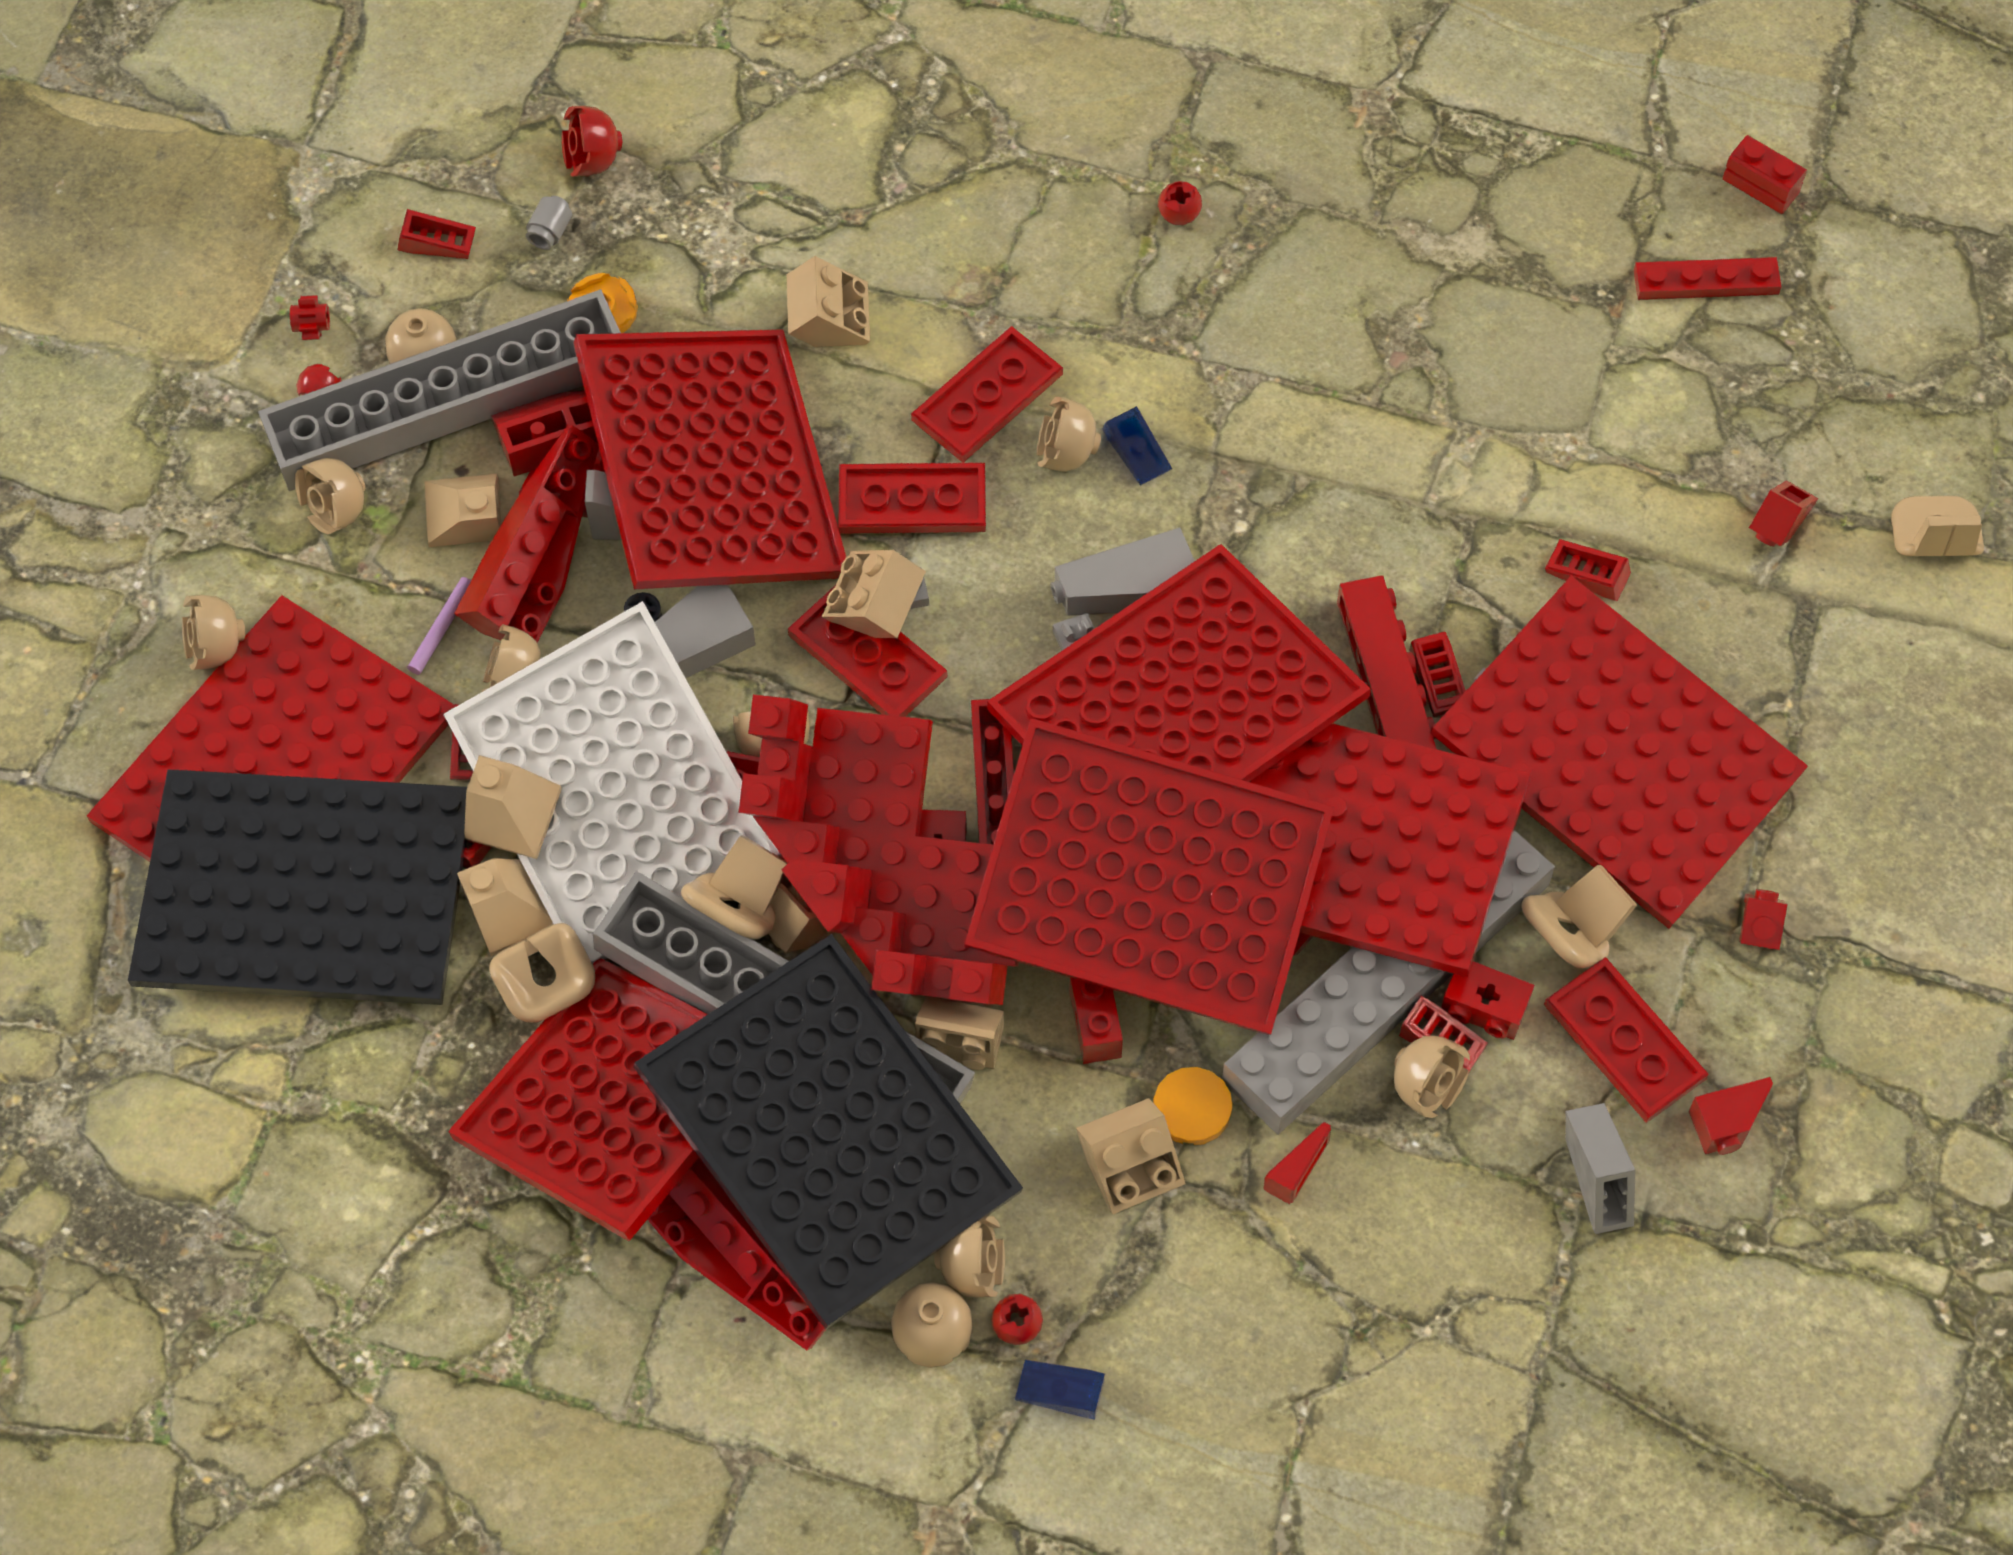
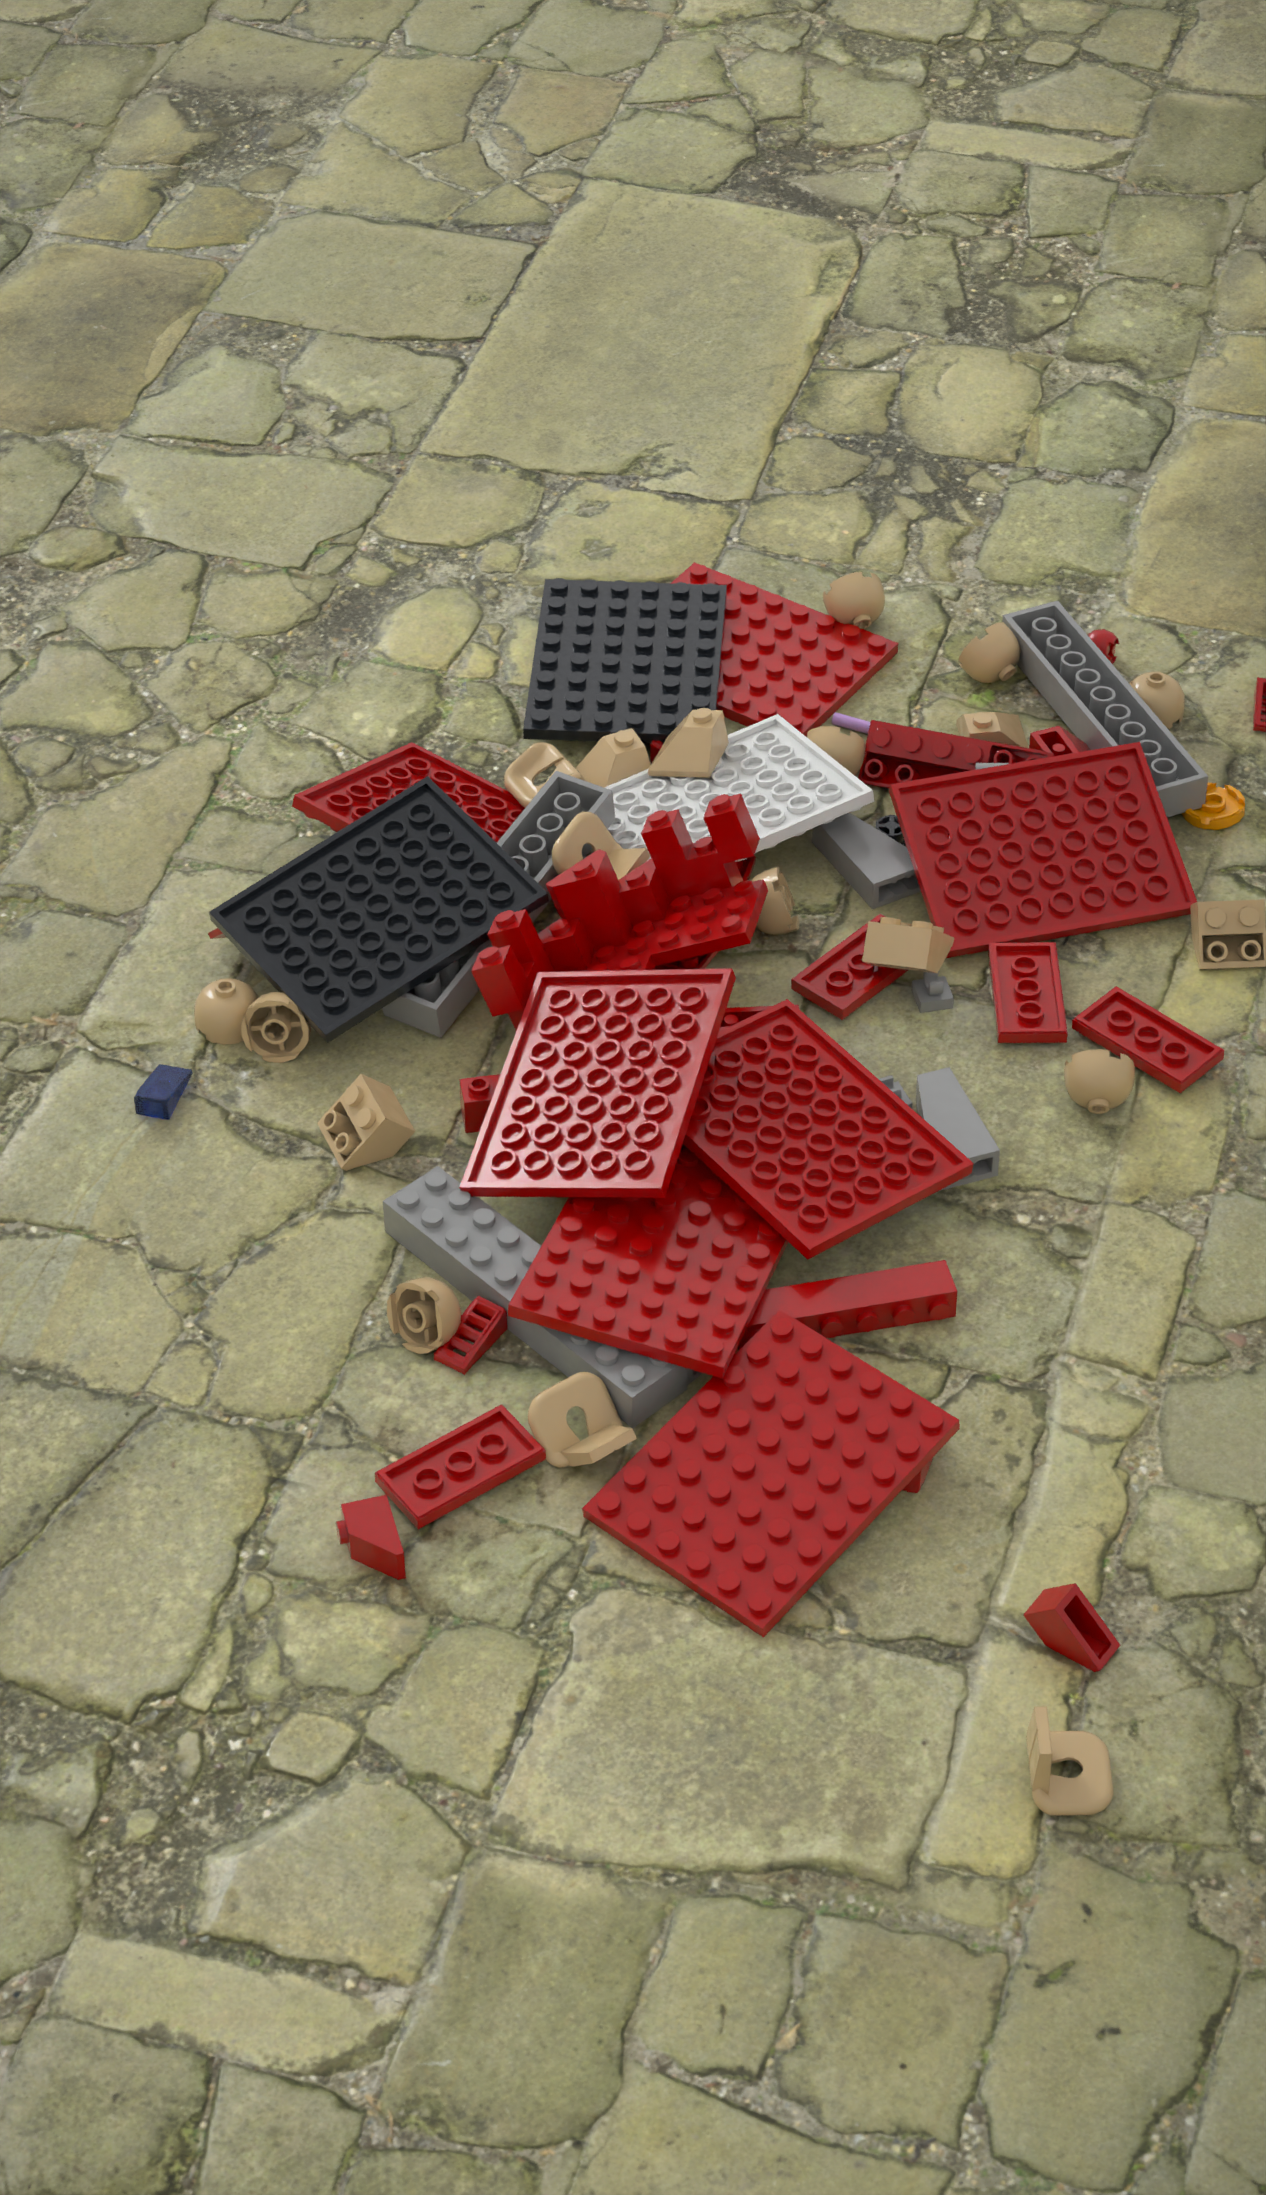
camera: 90 degrees right, 20 degrees down
(309, 317) = (1168, 638): red gear -> none
(961, 1031) = (476, 1029): tan slope -> none
(1009, 1331) = (224, 1058): red piece -> none
(1136, 446) = (1104, 1141): clear blue slope -> none
(1194, 1105) = (407, 1163): light orange tile -> none
(1293, 1170) = (347, 1231): red slope -> none
(1433, 651) = (878, 1335): red slope -> none
(1507, 998) = (504, 1363): red brick -> none
(1599, 583) = (988, 1475): red slope -> none
(1601, 1168) = (325, 1430): light grey slope -> none
(1763, 919) = (587, 1576): red bracket -> none

